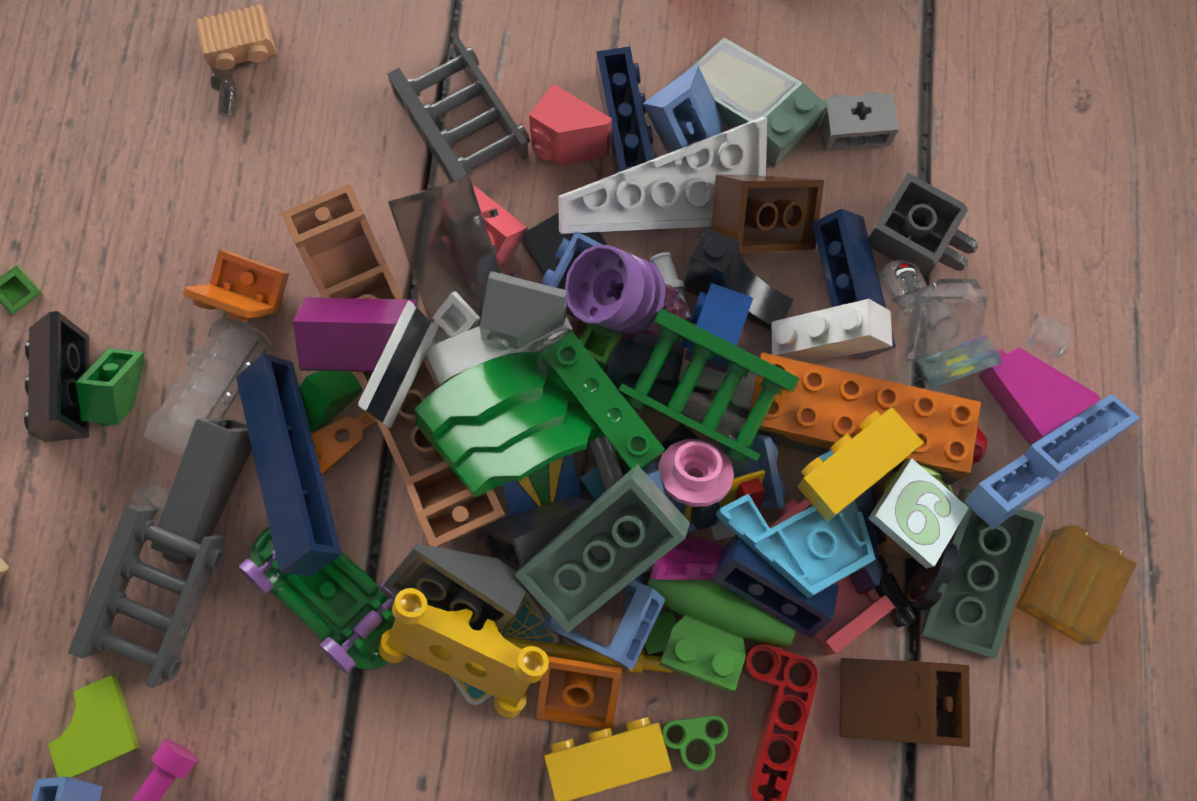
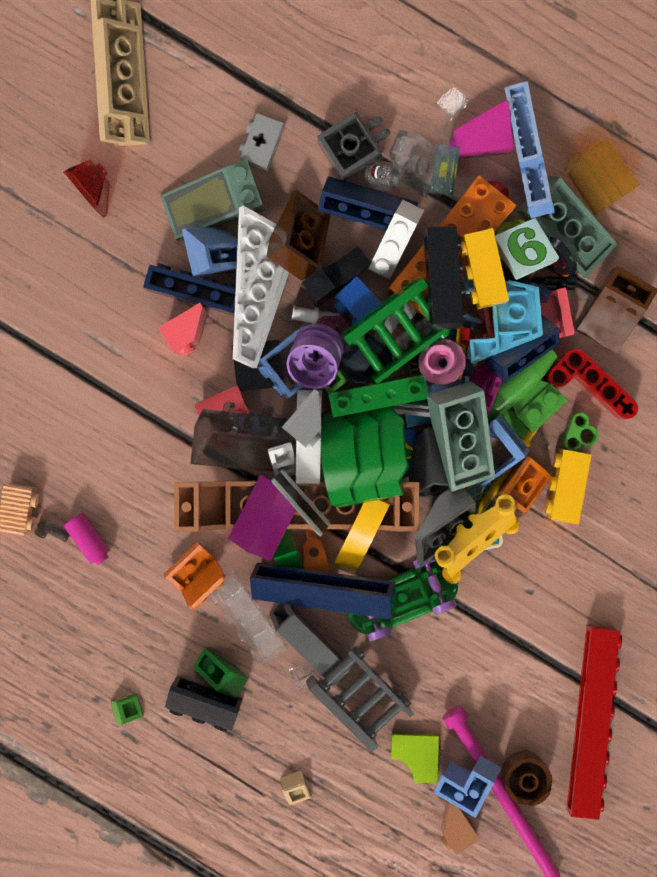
camera: 65 degrees left, 15 degrees up
(232, 136) = (87, 539): none -> dark pink brick
(392, 477) = (361, 535): none -> yellow slope
(443, 141) = (129, 412): dark grey fence -> none
(814, 407) = (443, 278): none -> black brick

